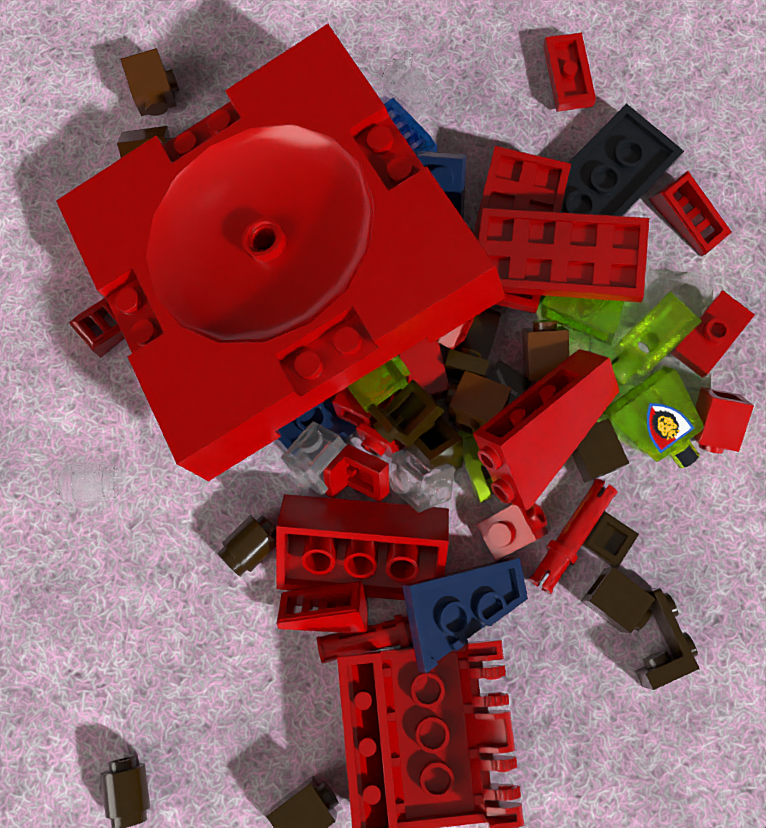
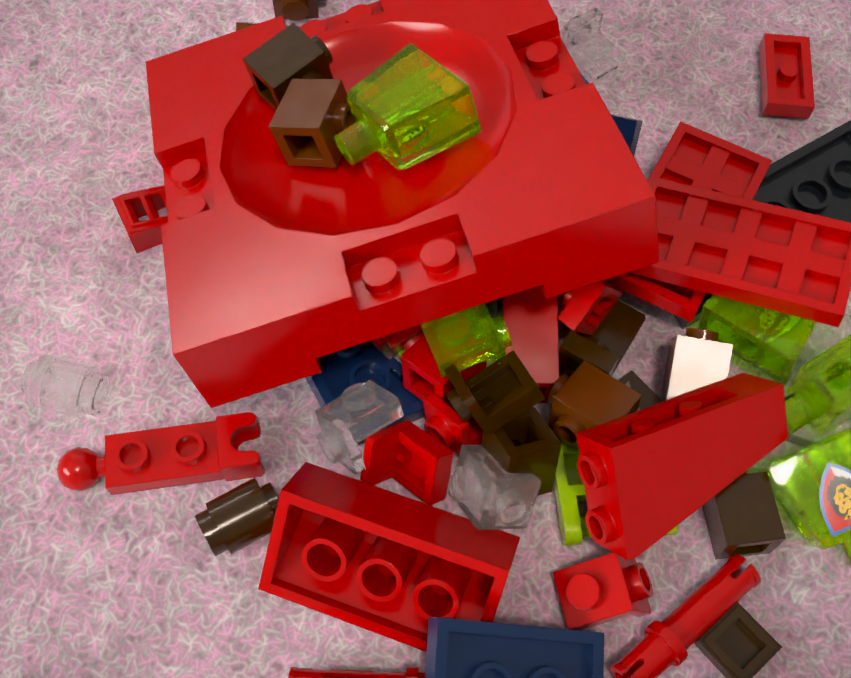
camera: 15 degrees right, 15 degrees down
(179, 515) = (167, 457): none -> red plate
(185, 197) = (286, 58): none -> dark brown brick
(219, 242) = (309, 120): none -> reddish brown brick
(289, 221) = (408, 111): none -> clear neon green torso
(340, 609) = (317, 631): red slope -> none

